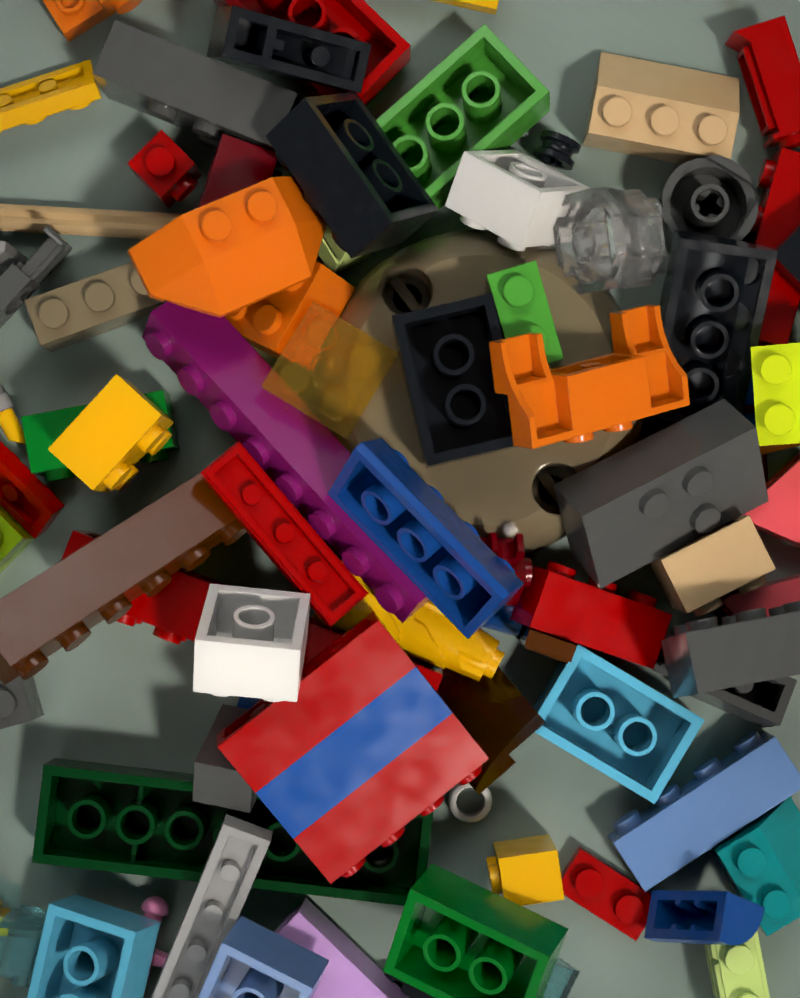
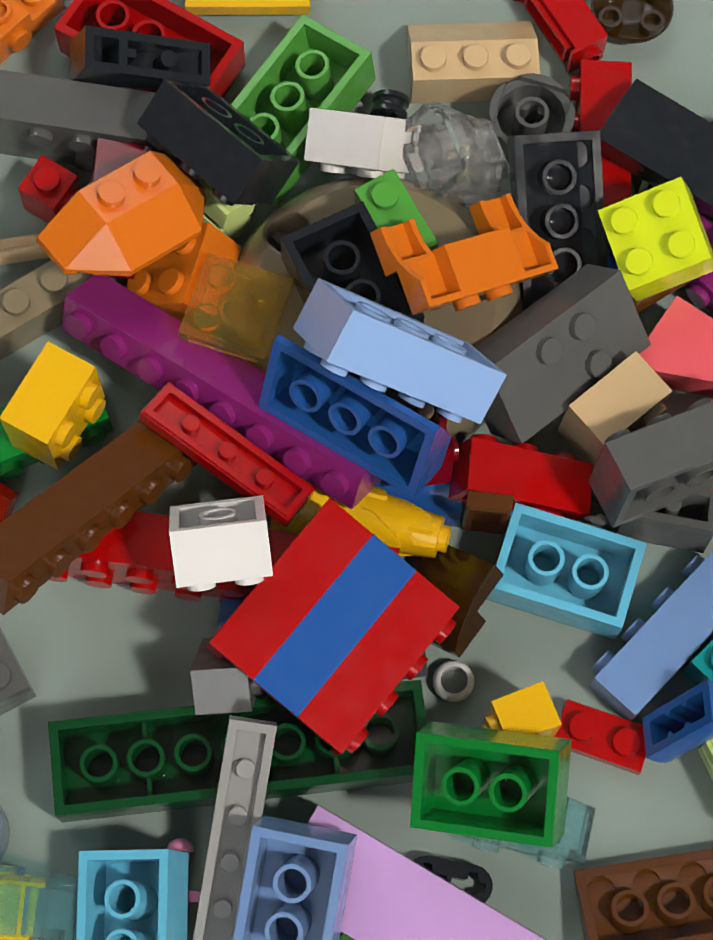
camera: 15 degrees left, 15 degrees down
(485, 489) = (397, 353): none -> light blue brick

